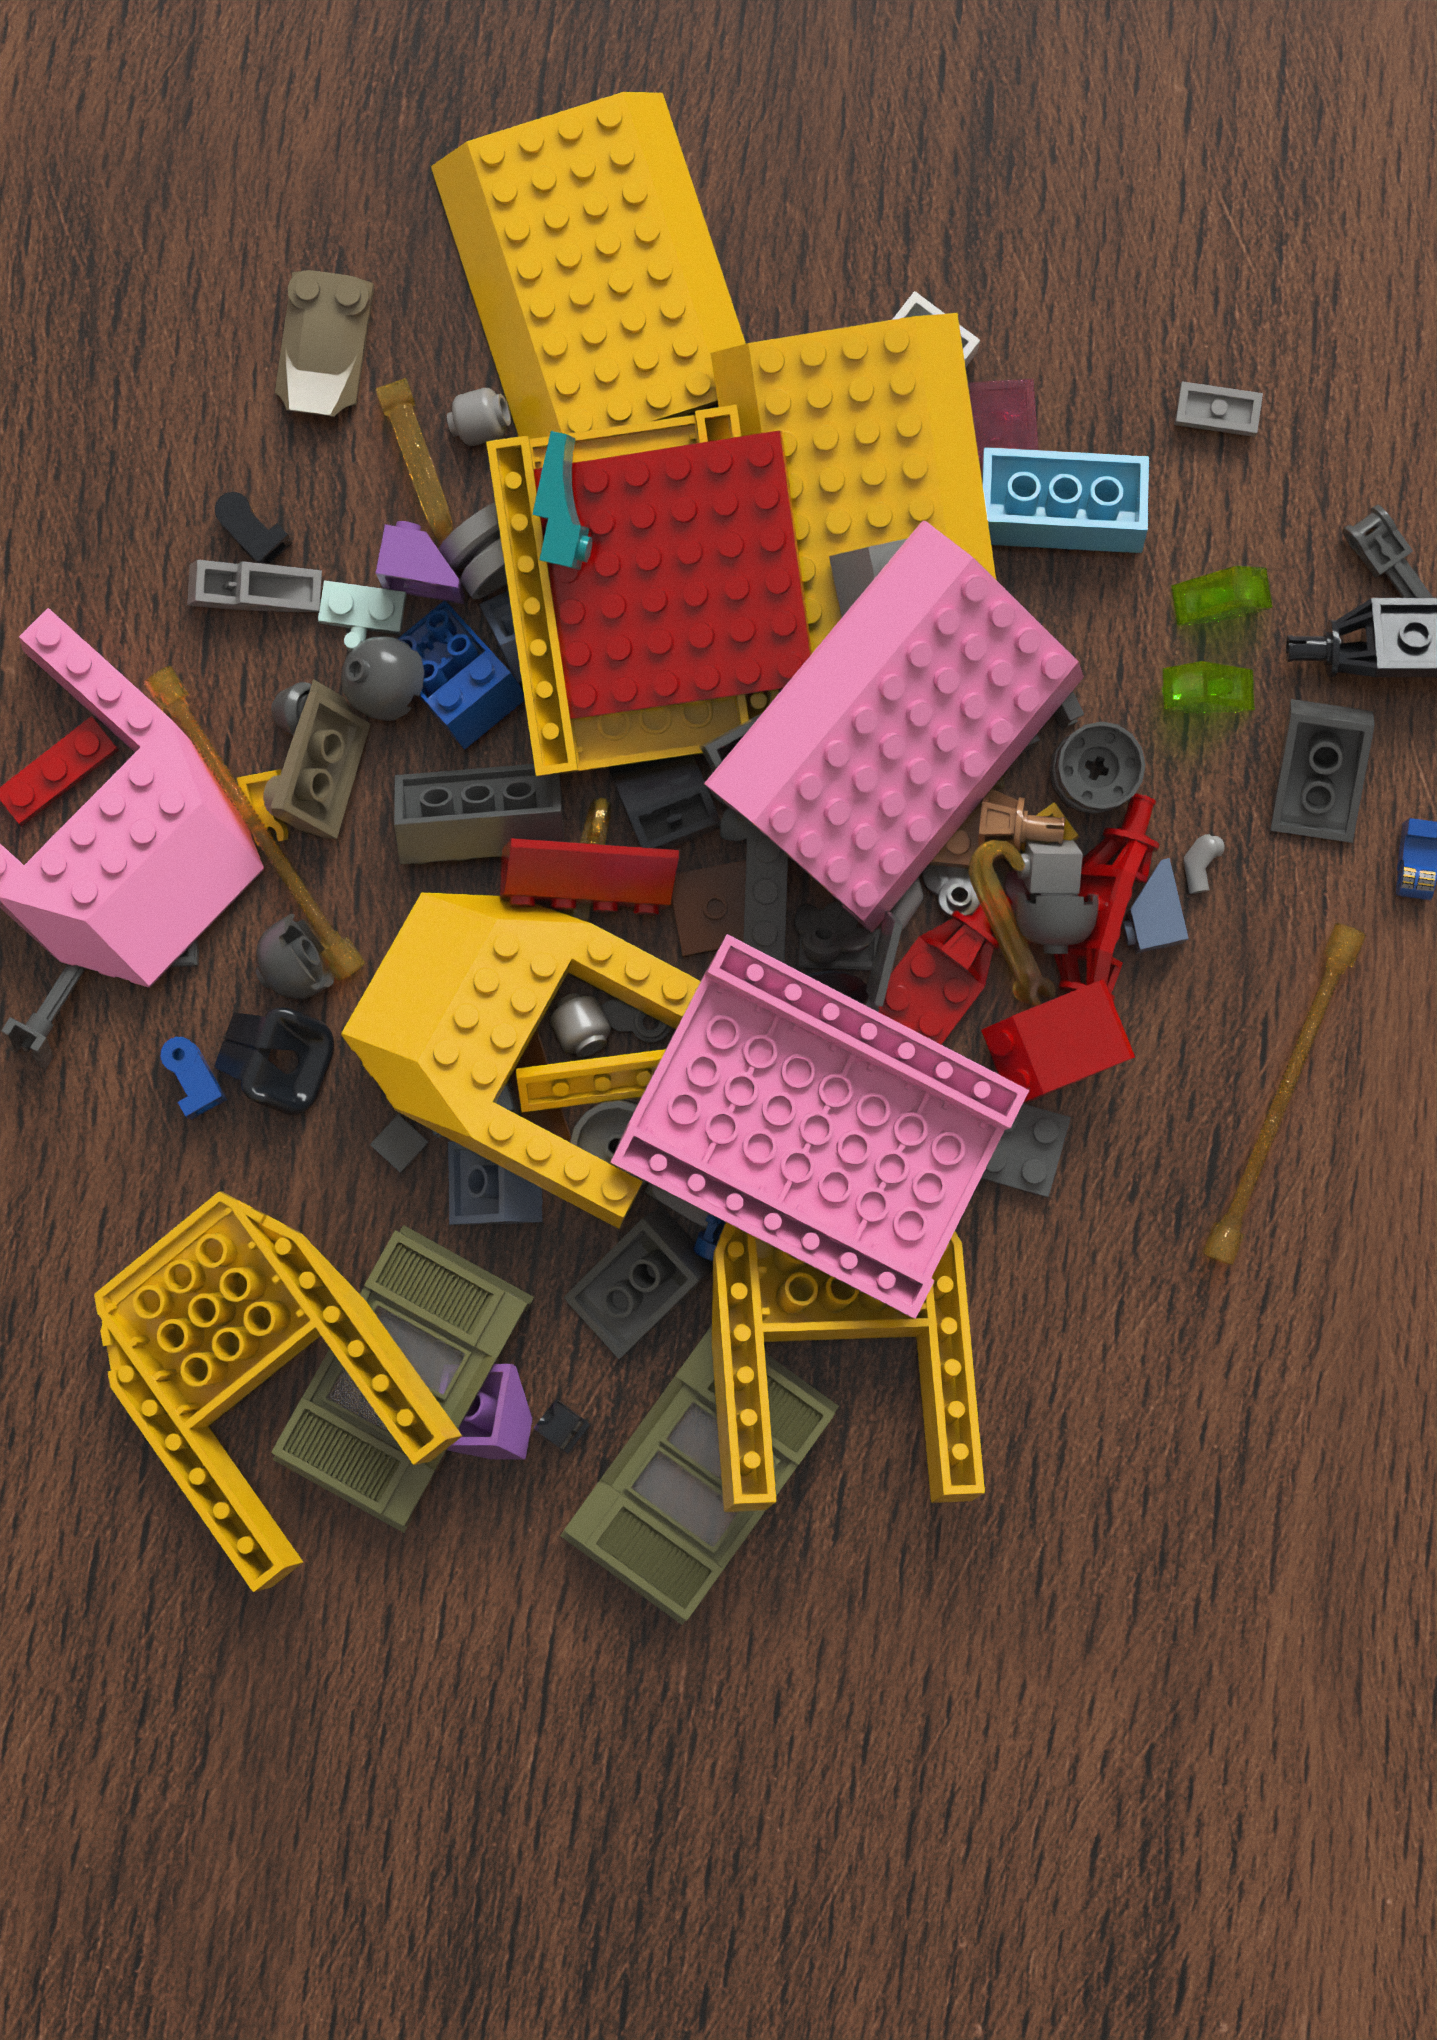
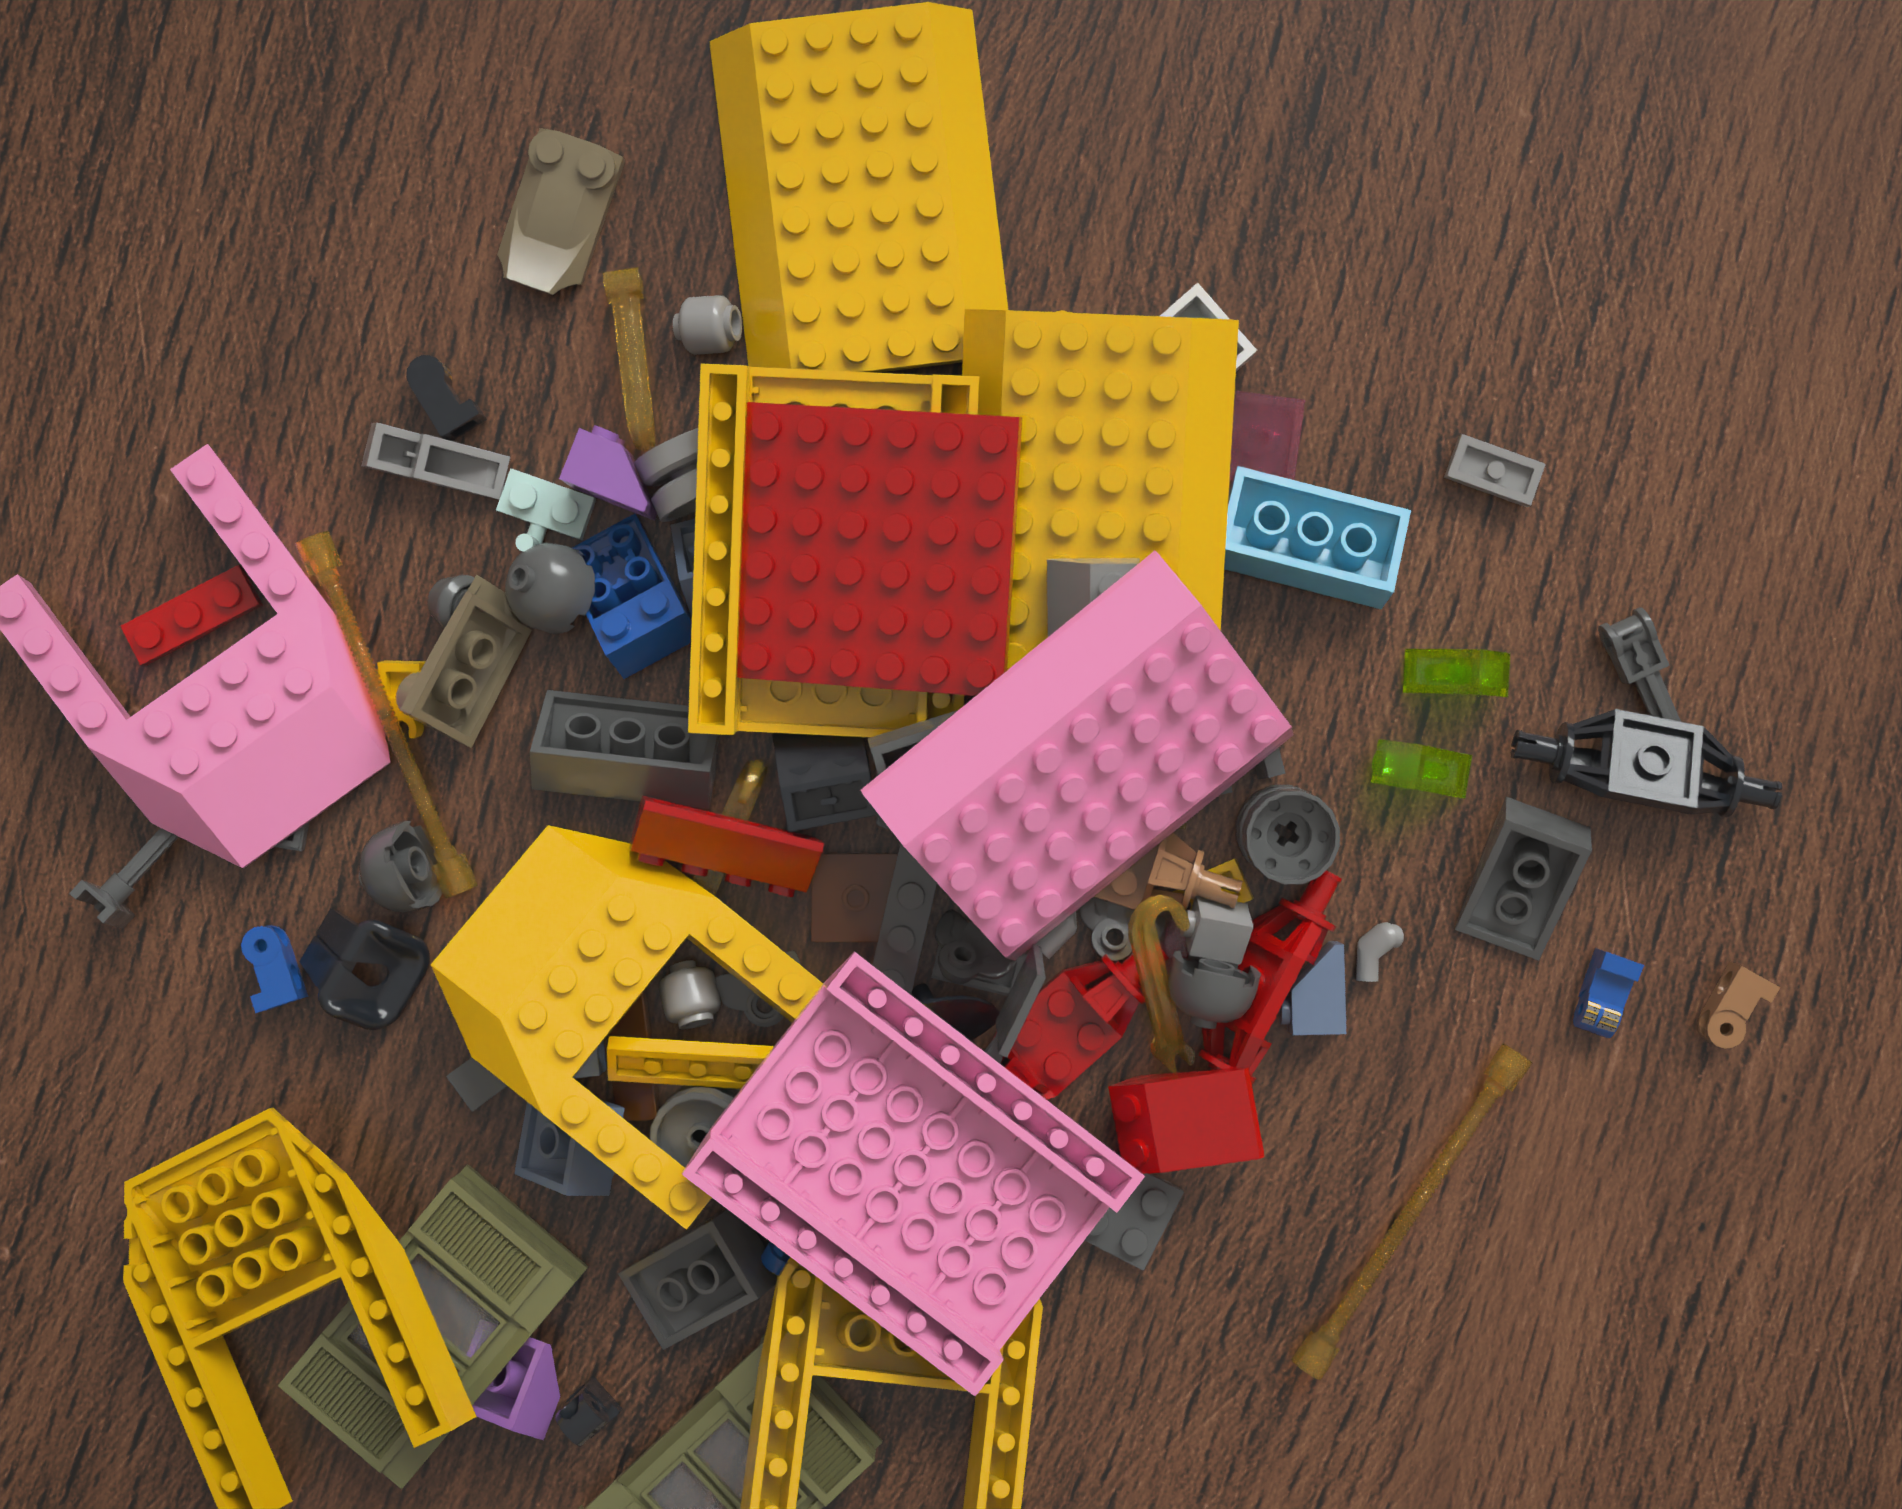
camera: 10 degrees right, 5 degrees up
(565, 539) = (765, 486): teal slope -> none

